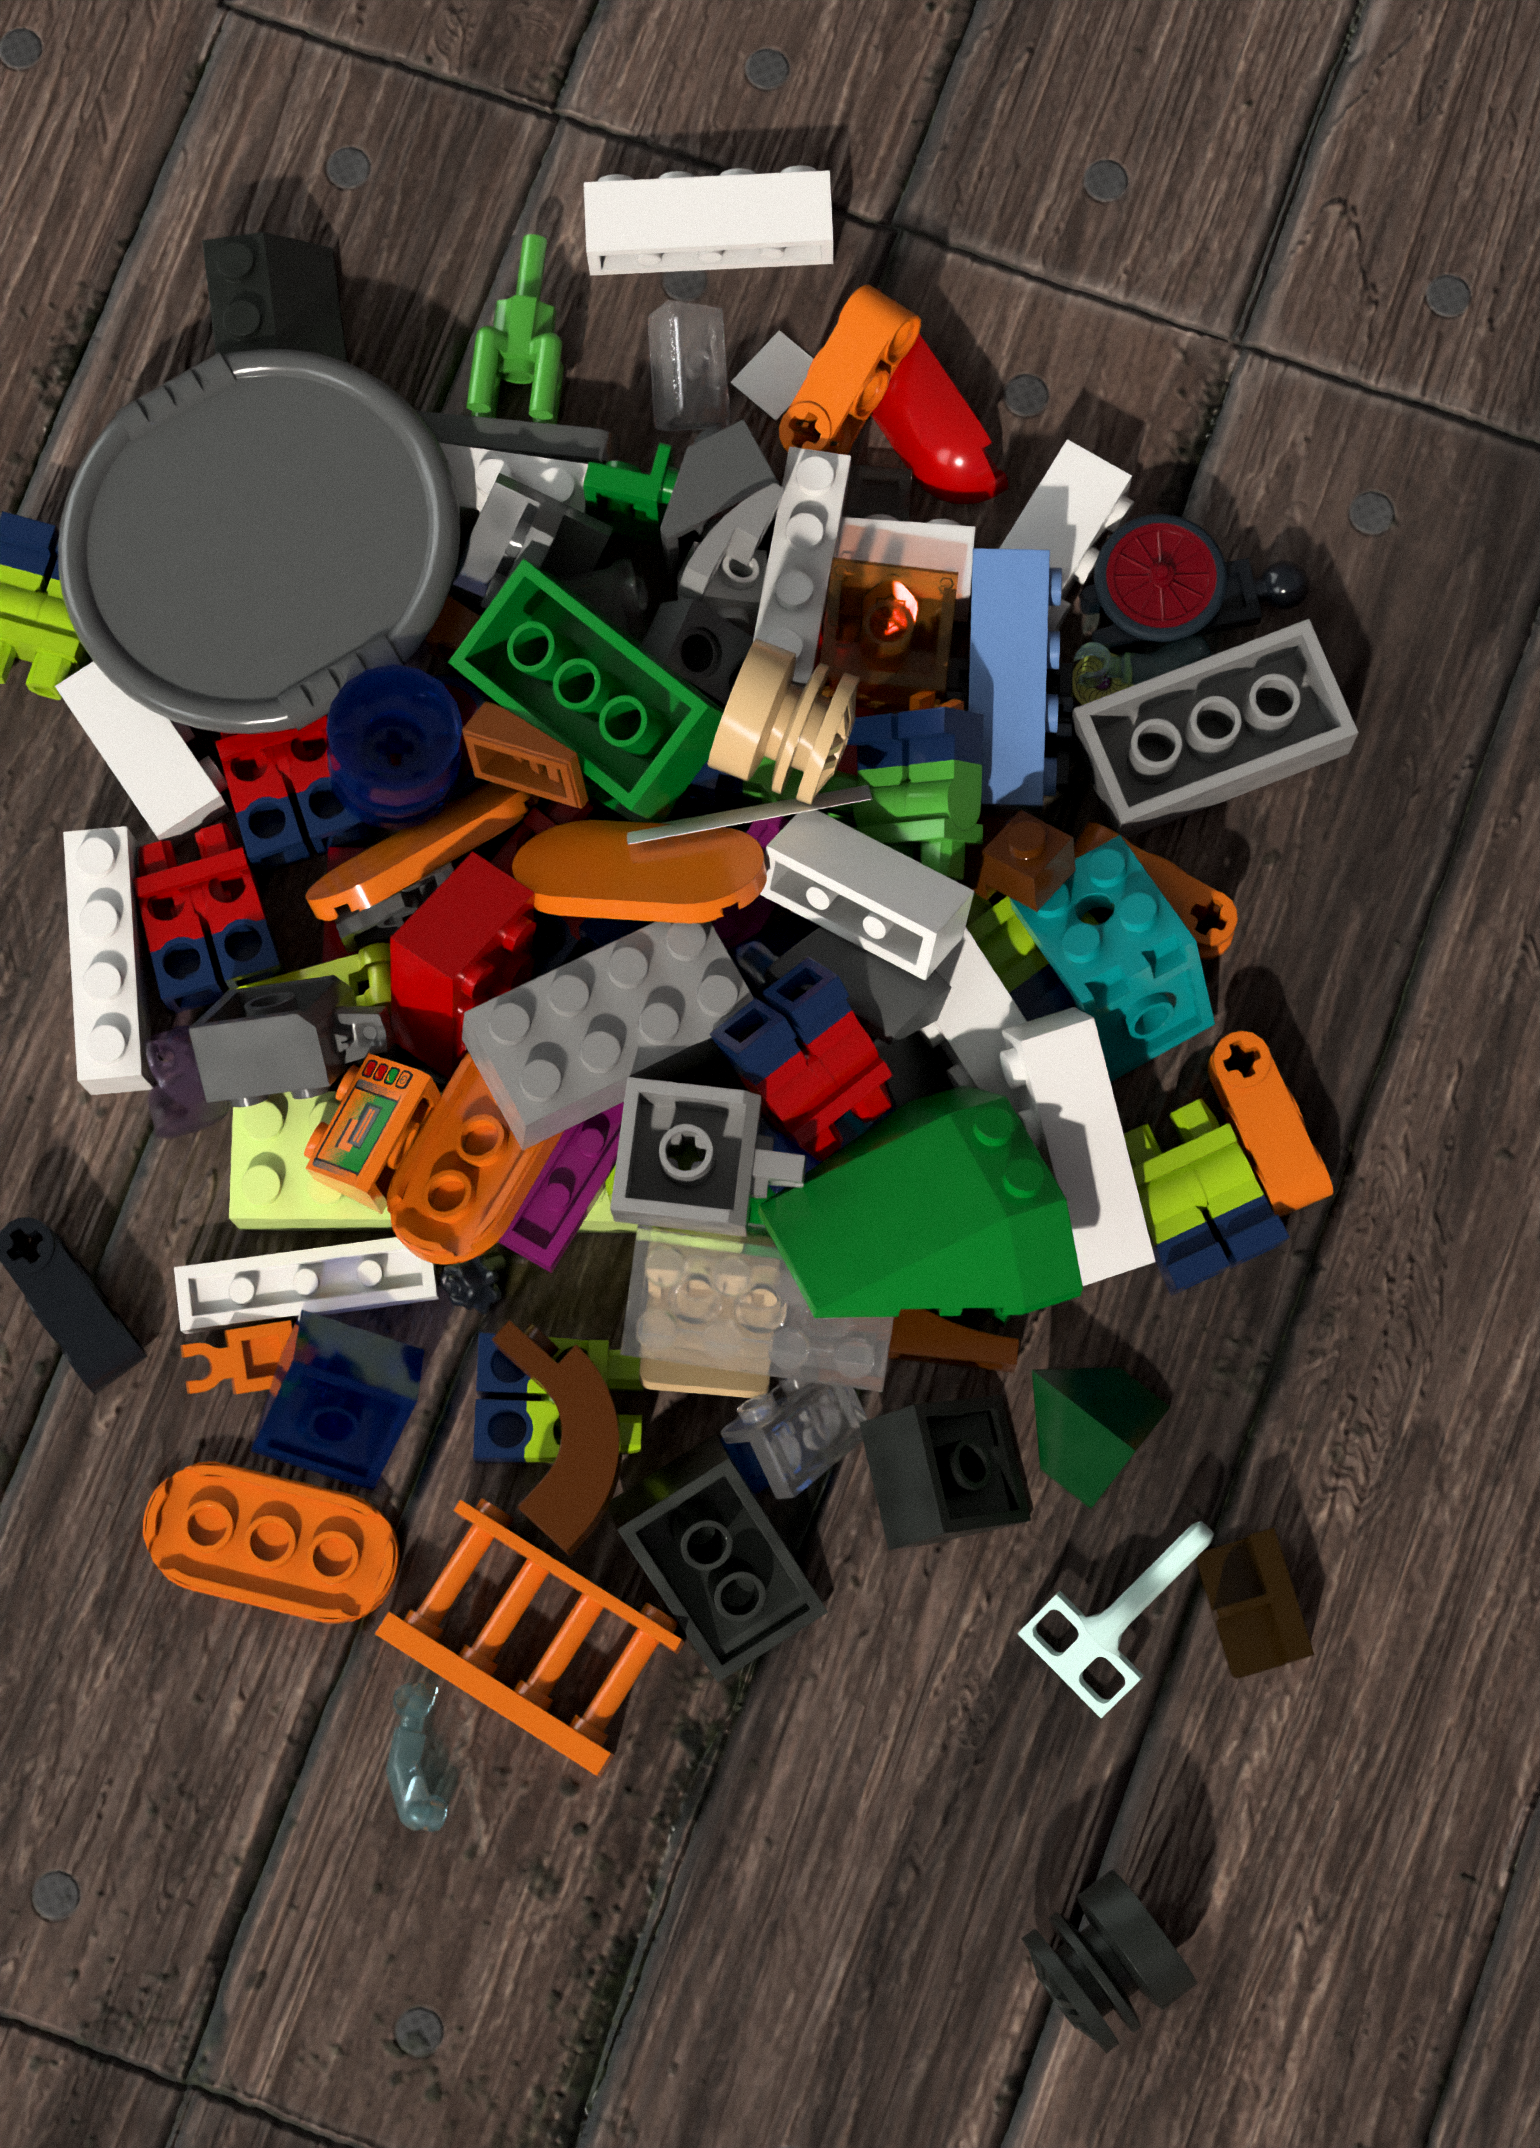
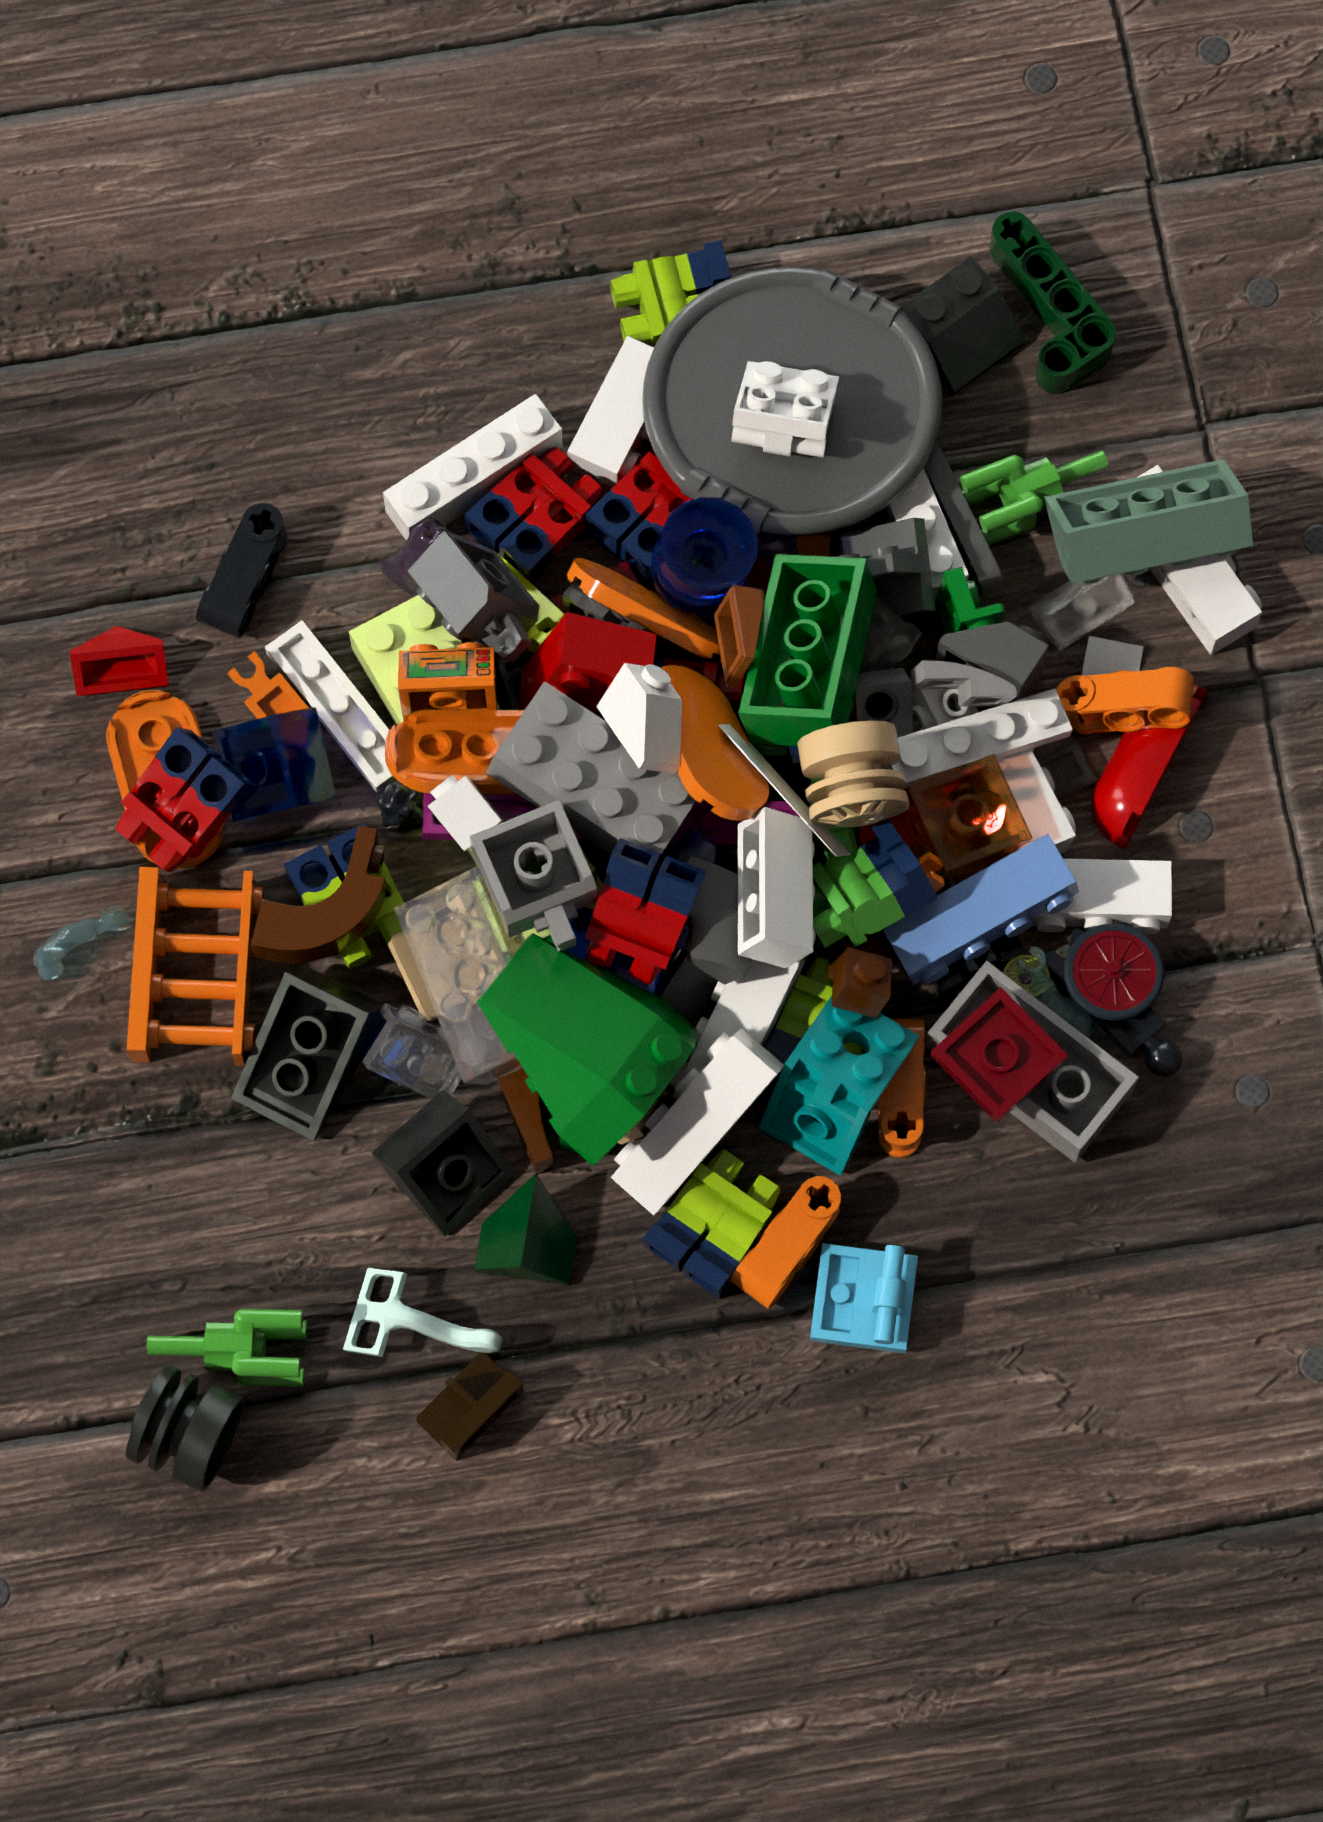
camera: 55 degrees right, 5 degrees down
(90, 1516) = (118, 662): none -> red slope
(275, 548) = (784, 409): none -> white plate
(296, 197) = (1043, 296): none -> dark green beam
(327, 1556) = (182, 799): none -> red hips
(561, 1201) = (462, 809): none -> white brick
(578, 919) = (645, 716): none -> white slope
(653, 225) = (1150, 522): none -> sand green slope
(1038, 1841) = (242, 1347): none -> bright green plant
(1202, 756) = (999, 1055): none -> dark red plate
(1379, 1078) = (864, 1297): none -> medium azure plate

